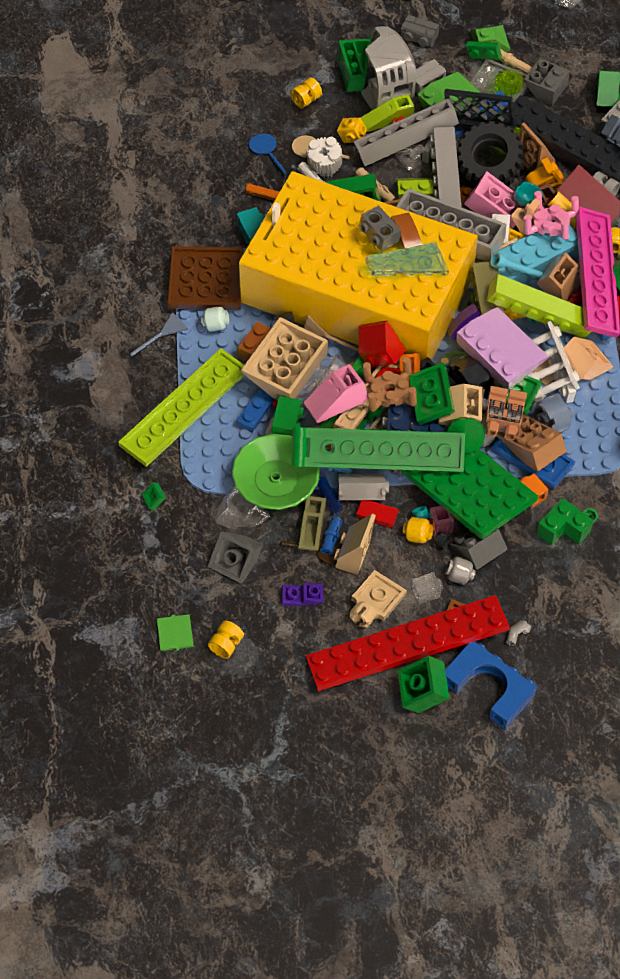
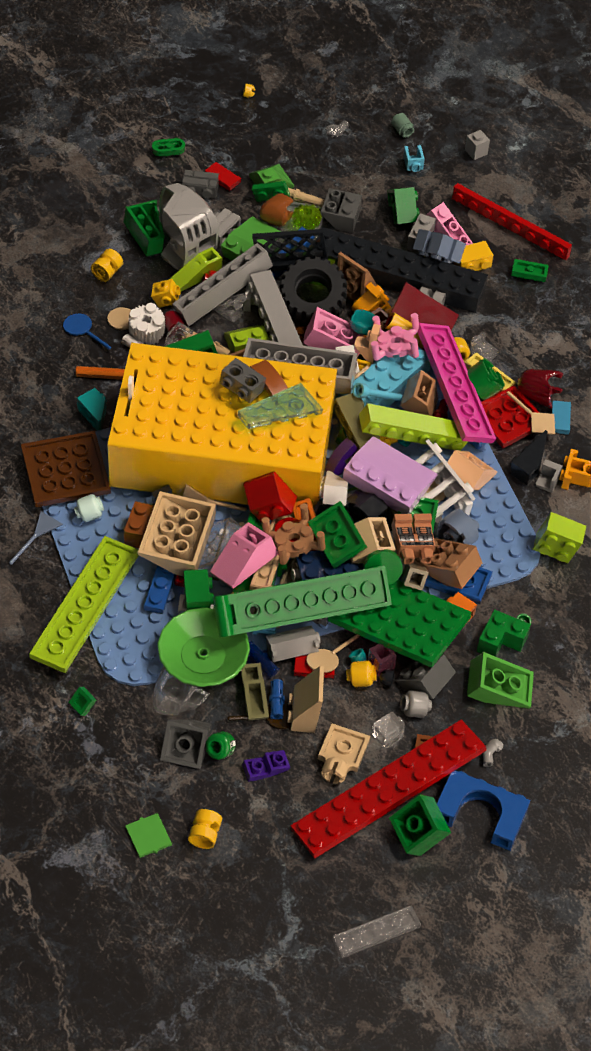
camera: 20 degrees left, 5 degrees down
(264, 566) = (220, 745): none -> green head
(350, 160) = (172, 319): none -> dark red brick
(352, 169) = (178, 333): none -> clear bracket
(352, 772) = (376, 931): none -> clear plate
(389, 509) = (326, 657): none -> tan piece
(443, 350) = (333, 489): none -> white slope
(446, 29) = (226, 178): none -> red tile
(480, 71) = (275, 211): none -> dark orange piece
(495, 449) = (414, 576): none -> dark tan brick
(547, 568) = (499, 682): none -> bright green slope

